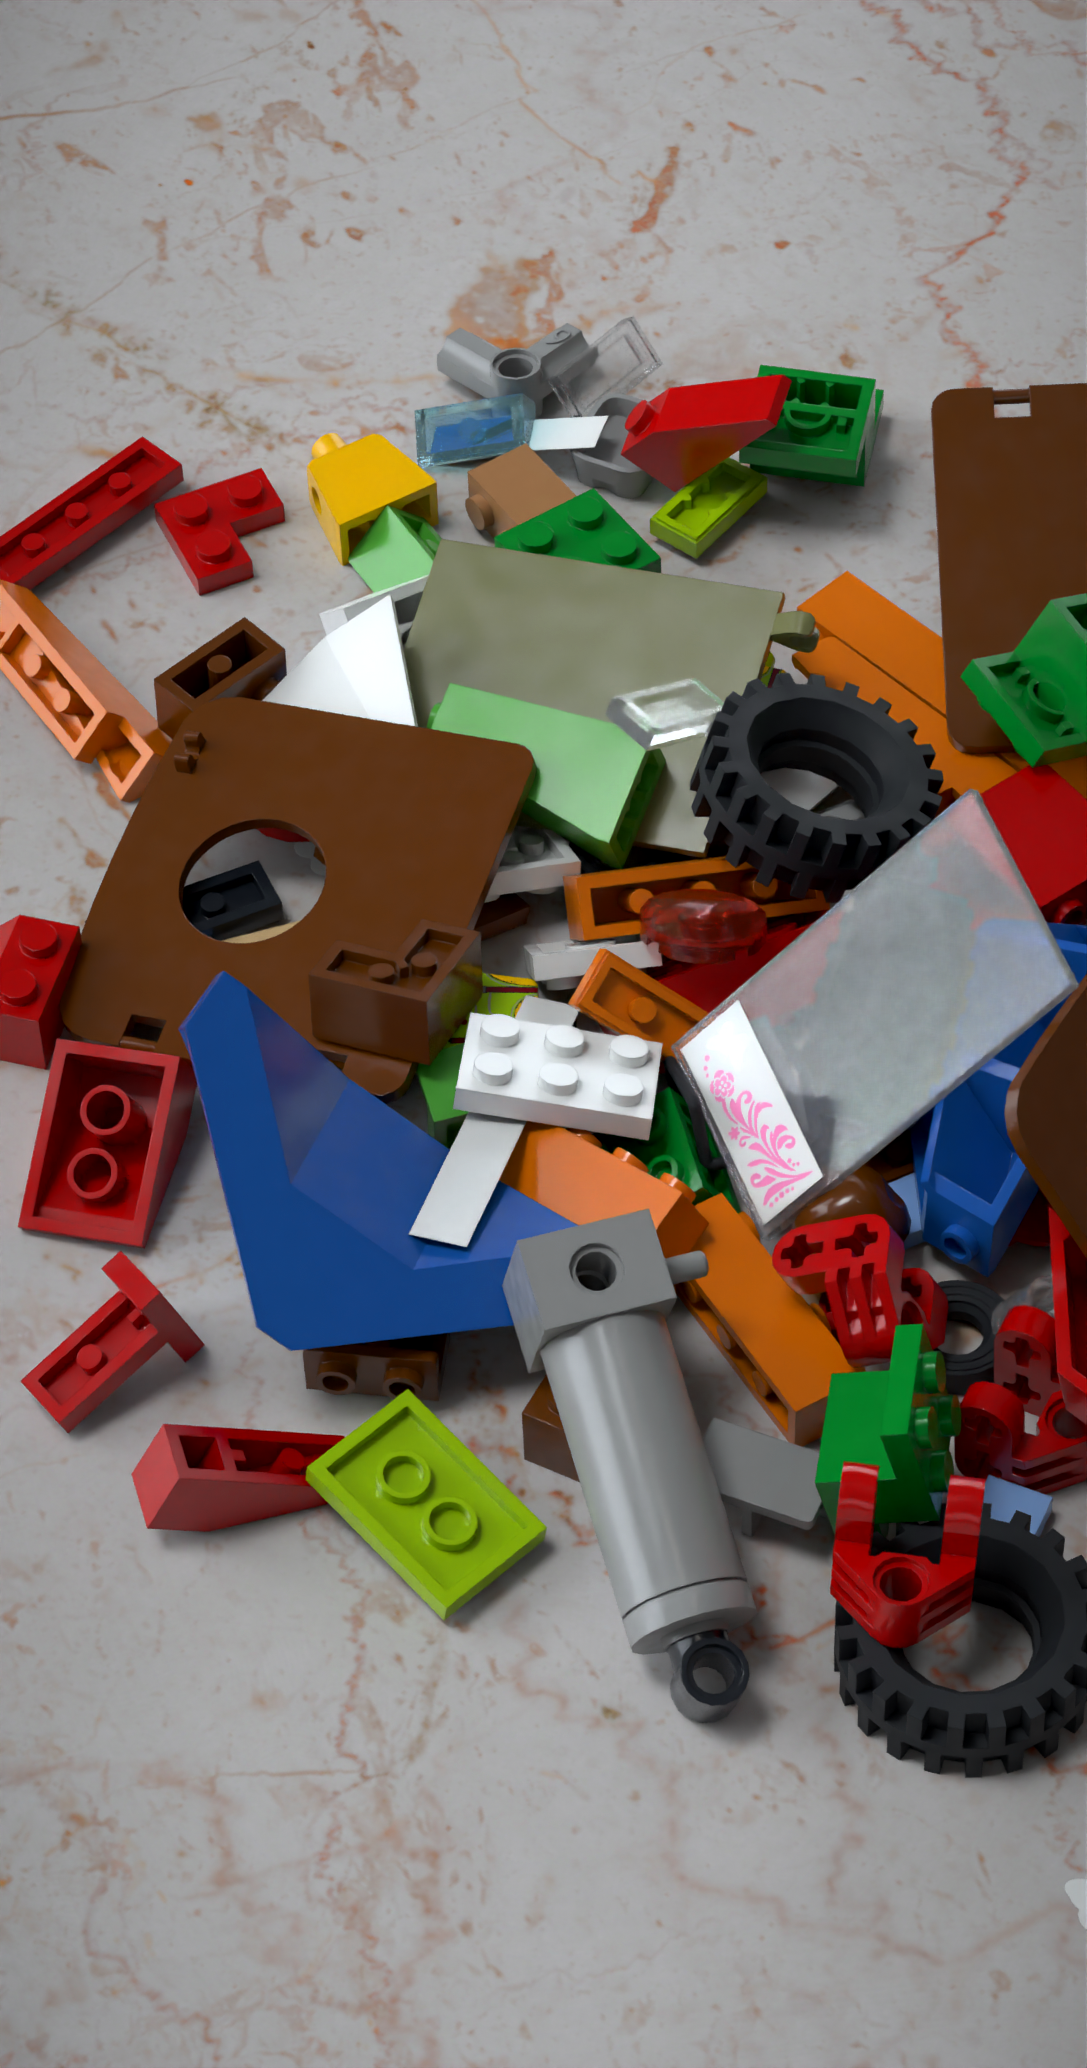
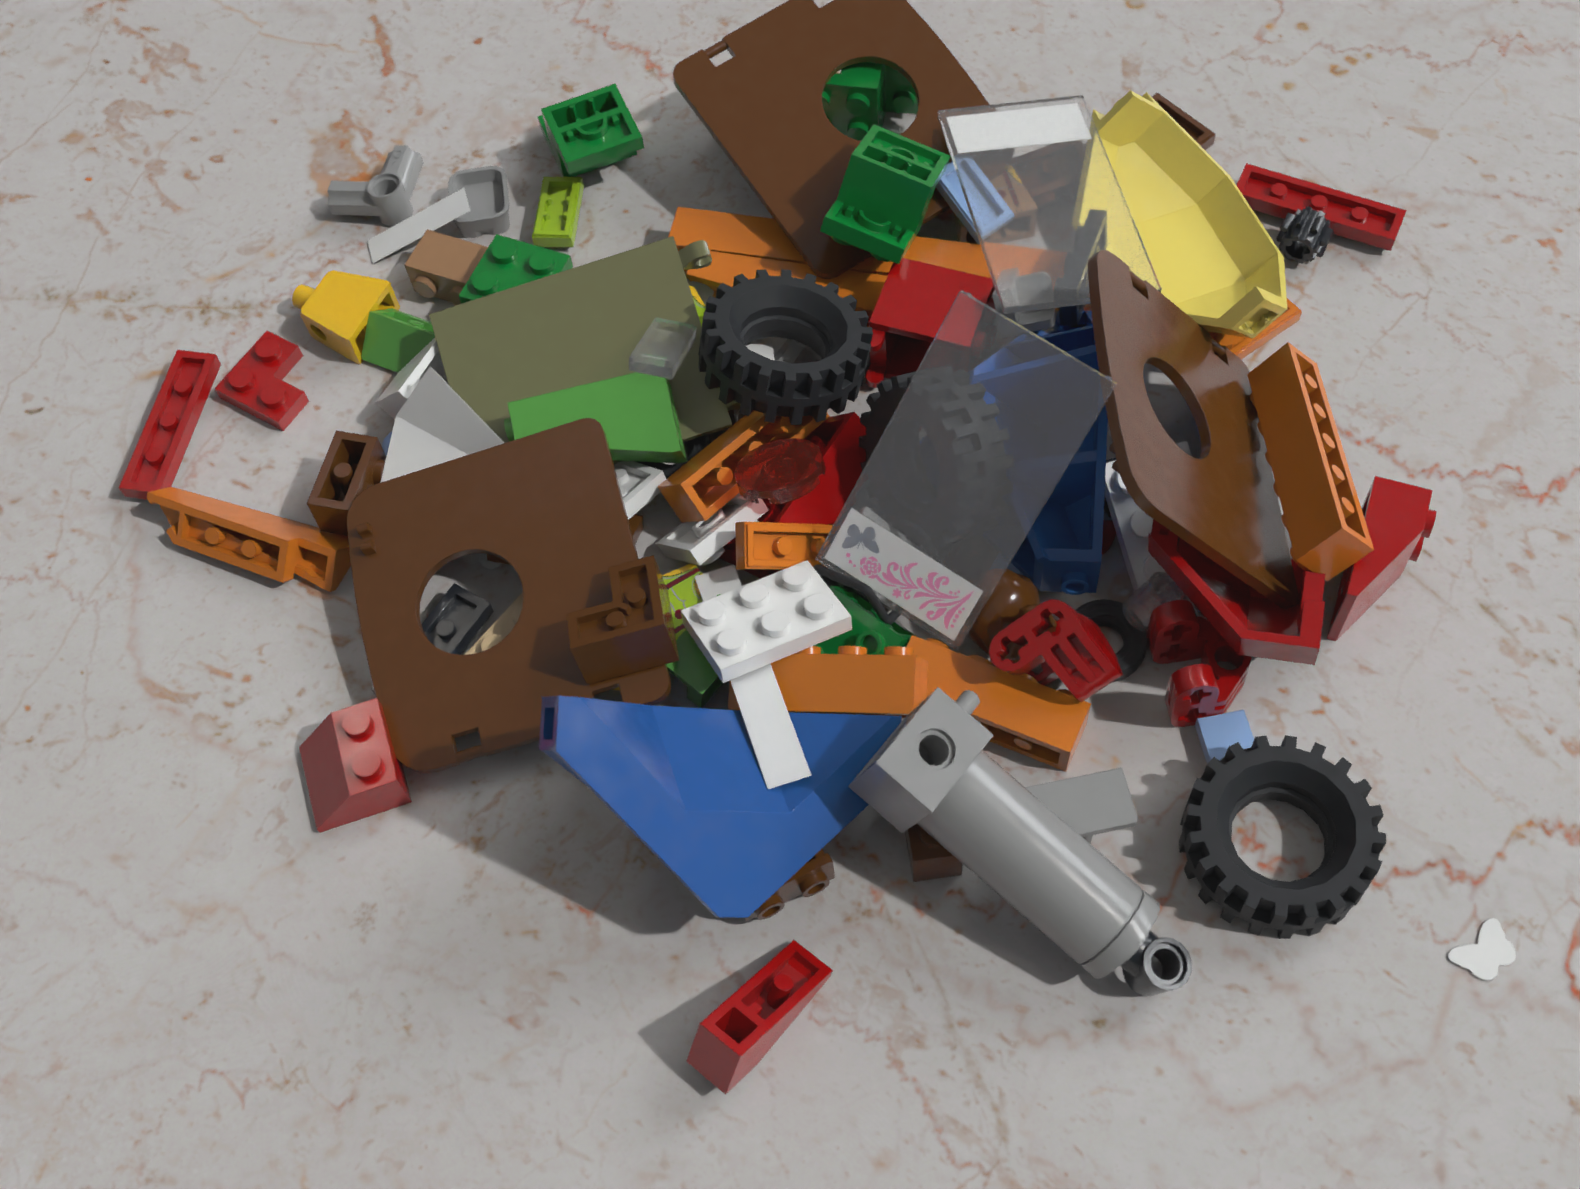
camera: 30 degrees left, 10 degrees up
(107, 1142) = (497, 837): red slope -> none
(109, 1346) = (606, 982): red bracket -> none
(426, 1504) = (890, 959): lime plate -> none
(473, 429) = (384, 238): clear light blue slope -> none
(606, 367) = (436, 162): clear tile -> none
(701, 426) = (534, 162): red slope -> none
(895, 1422) = (1162, 742): green bracket -> none
(897, 1594) = (1263, 789): red piece -> none

